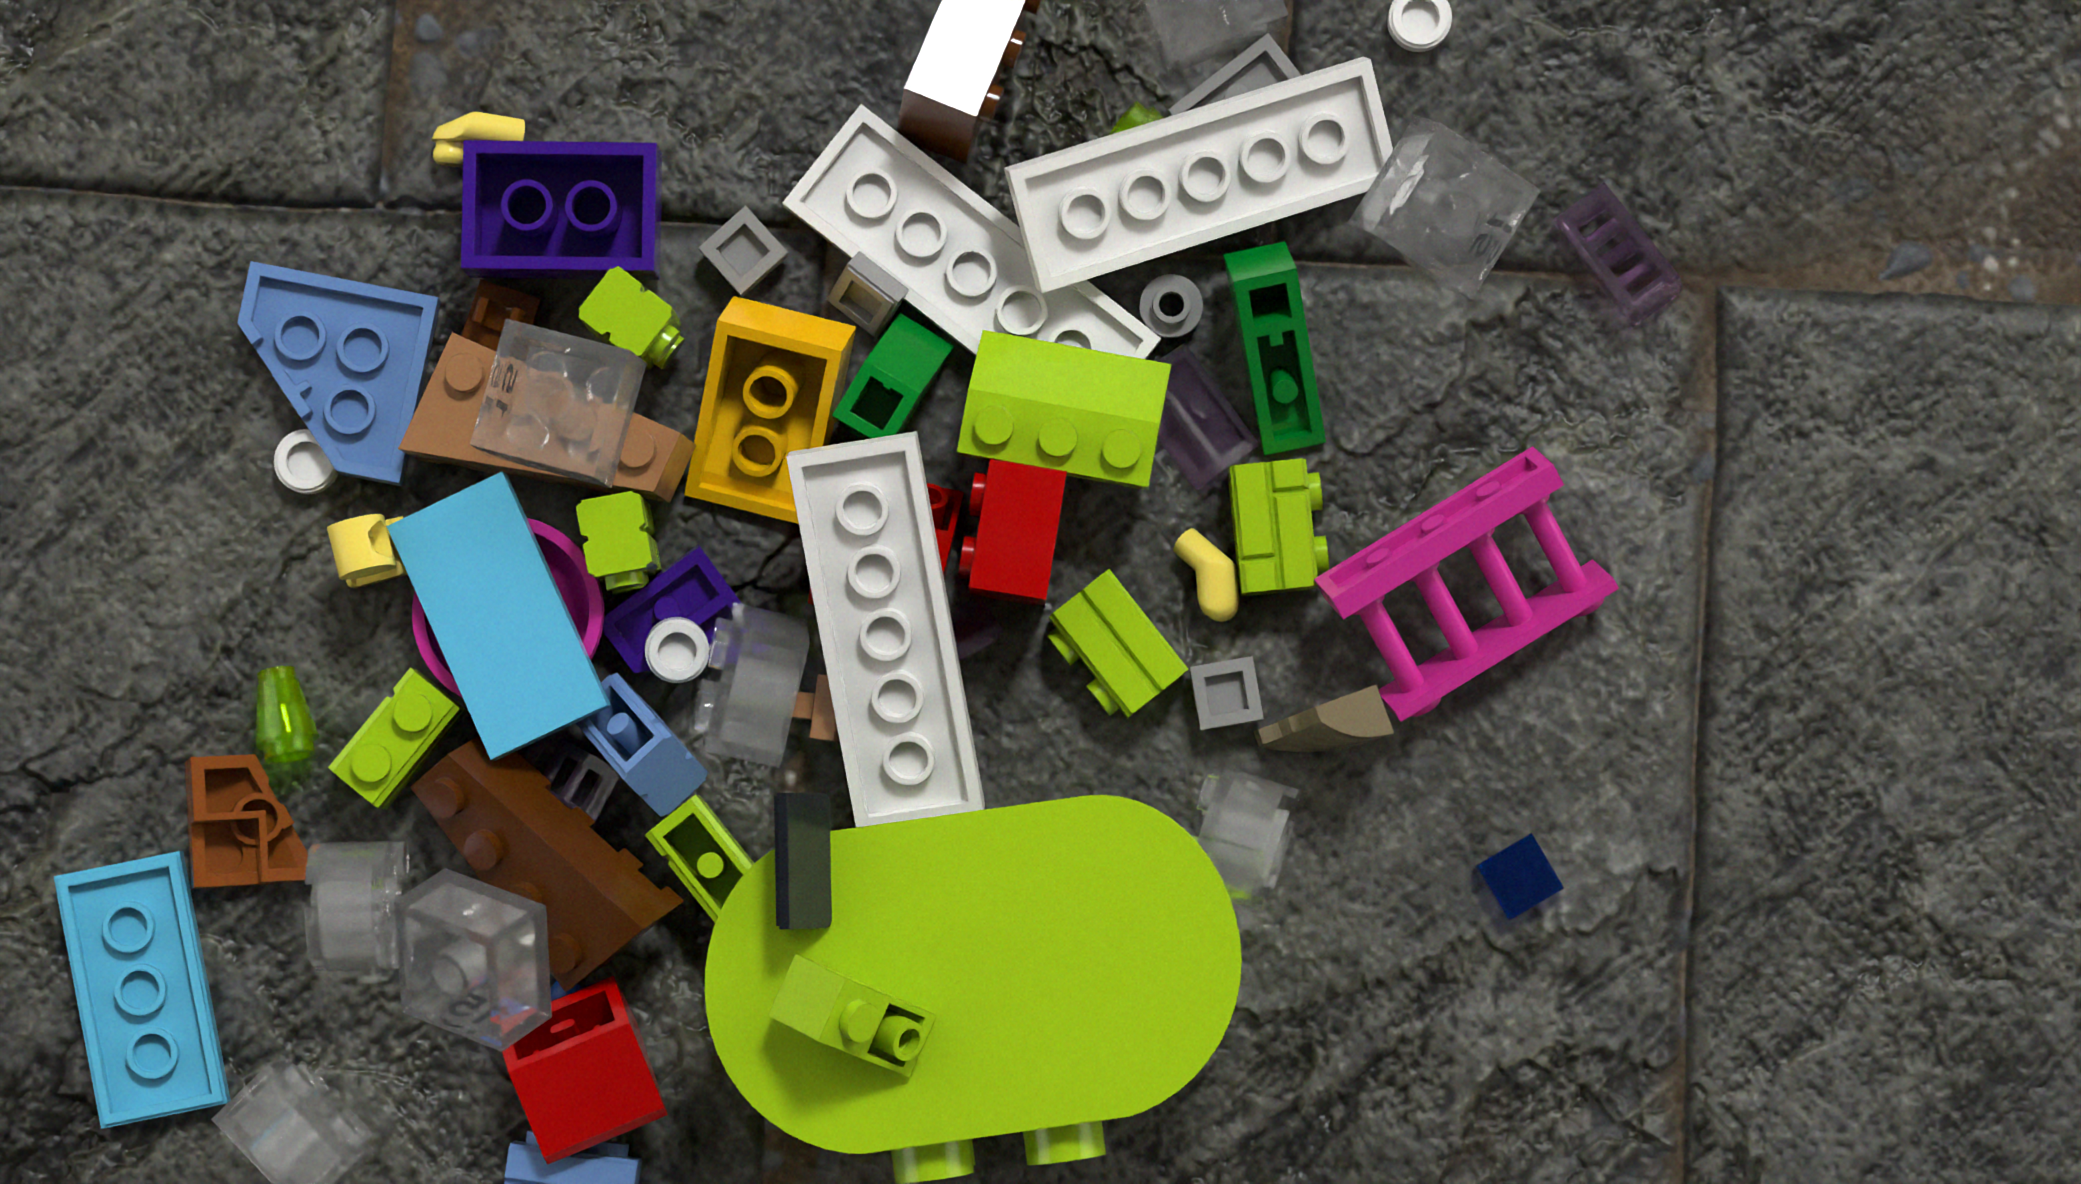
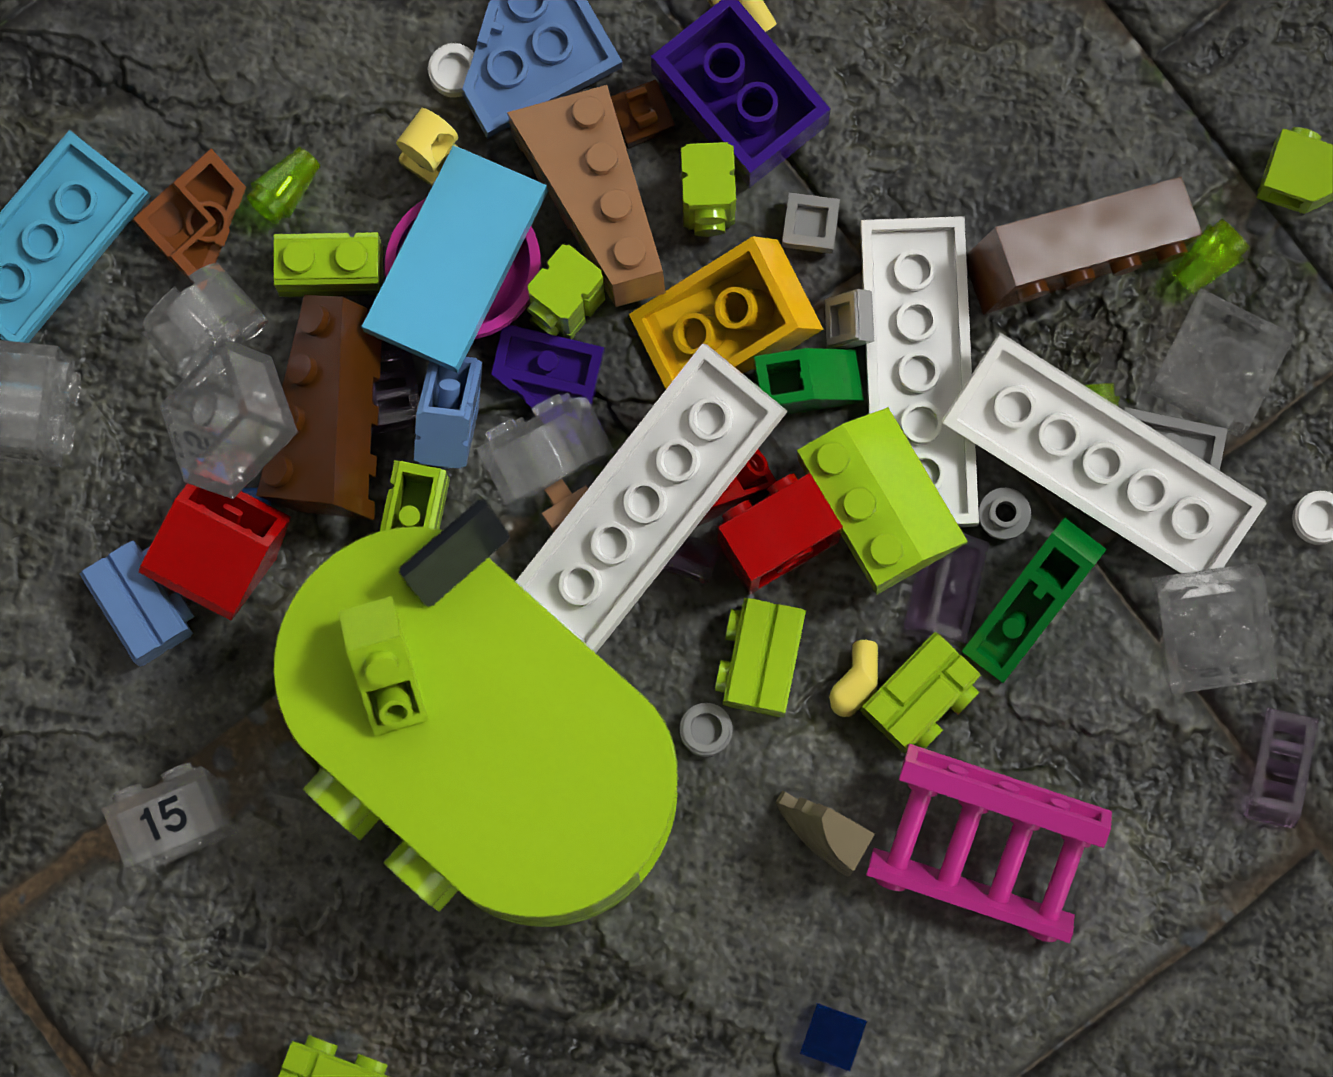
camera: 55 degrees right, 5 degrees down
(558, 403) = (616, 177): clear brick -> none
(676, 650) = (526, 386): white tile -> none
(1137, 753) = (706, 729): none -> light grey tile
(1226, 693) = (790, 752): light grey plate -> none
(1246, 831) = (710, 835): clear brick -> none

